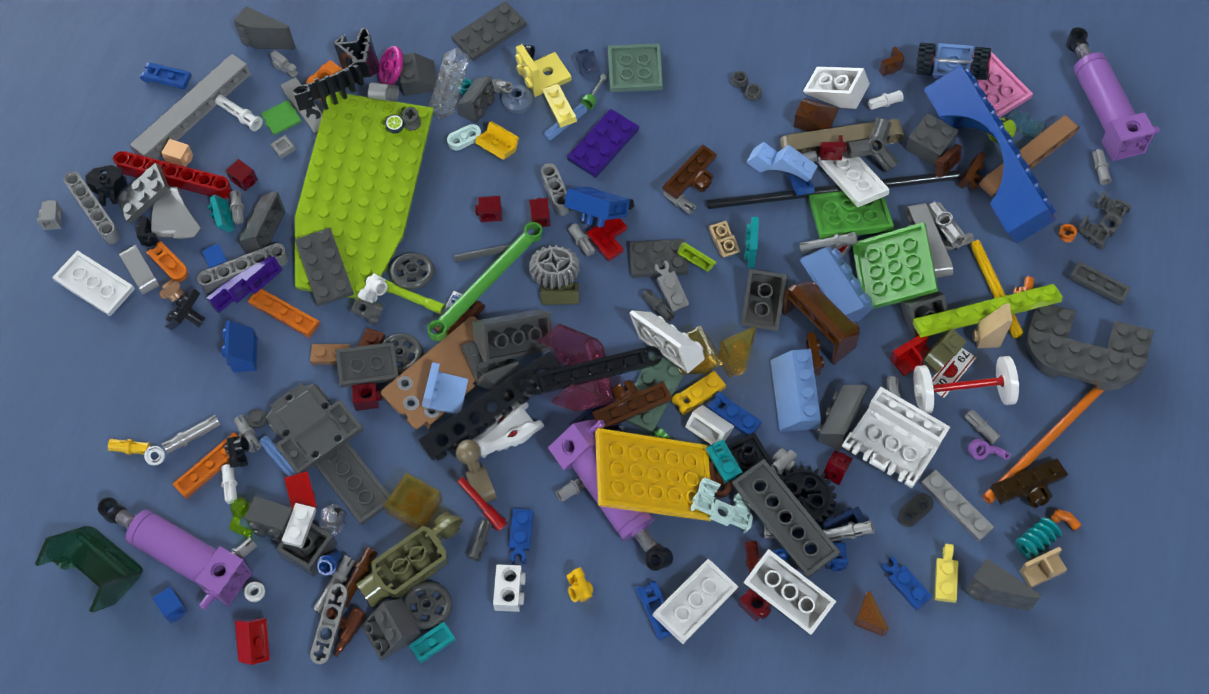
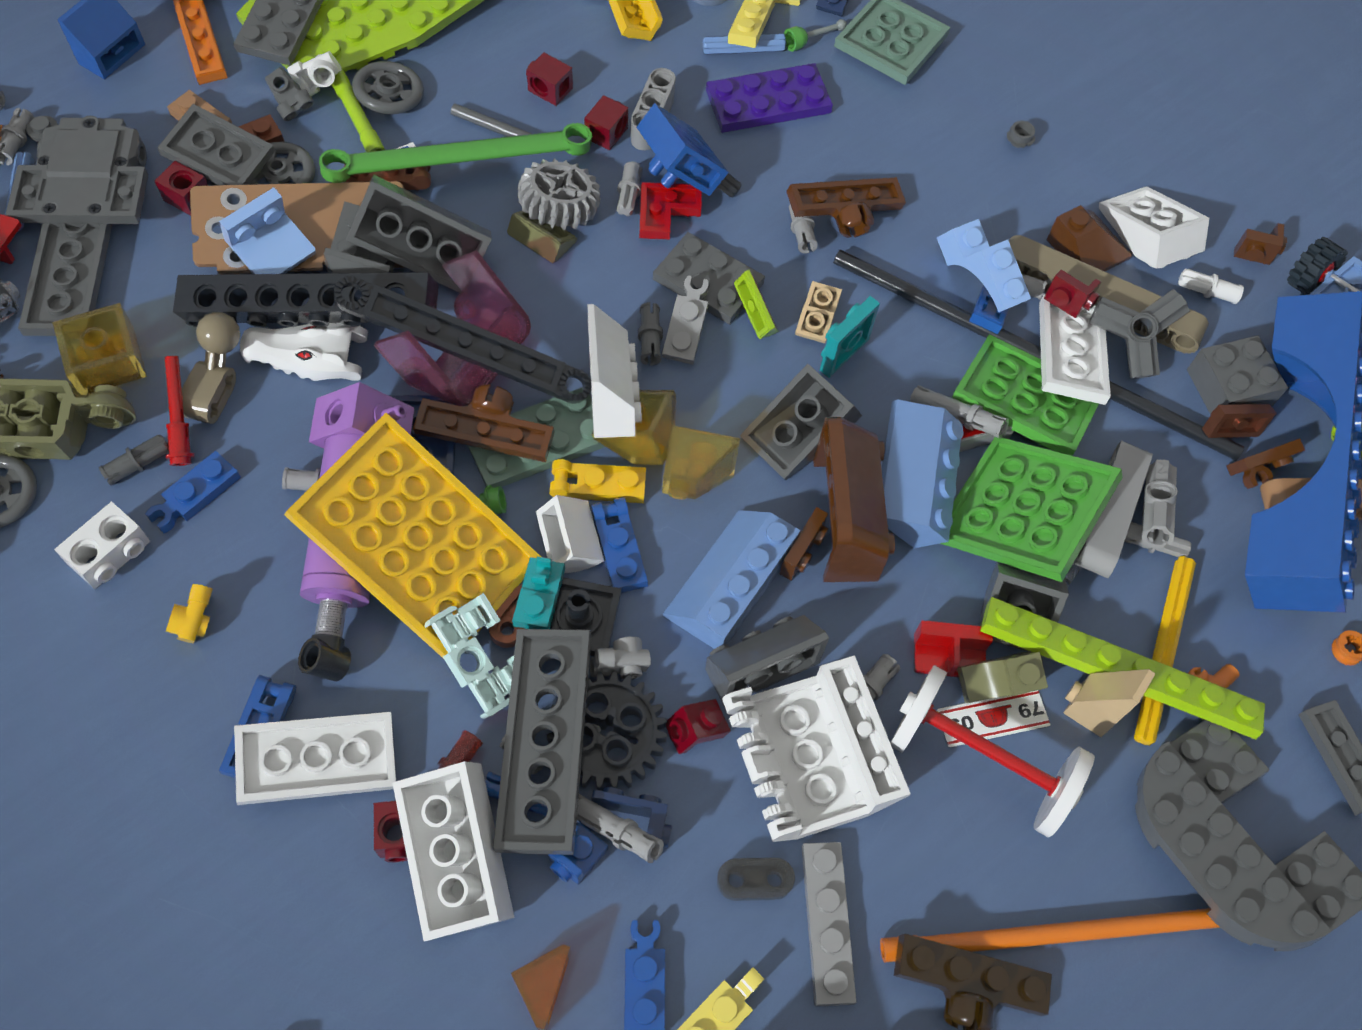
camera: 30 degrees right, 0 degrees up
(753, 92) = (1026, 160): dark grey plate -> none
(982, 426) = (970, 834): light grey axle -> none
(984, 449) = (944, 871): medium lavender plate -> none

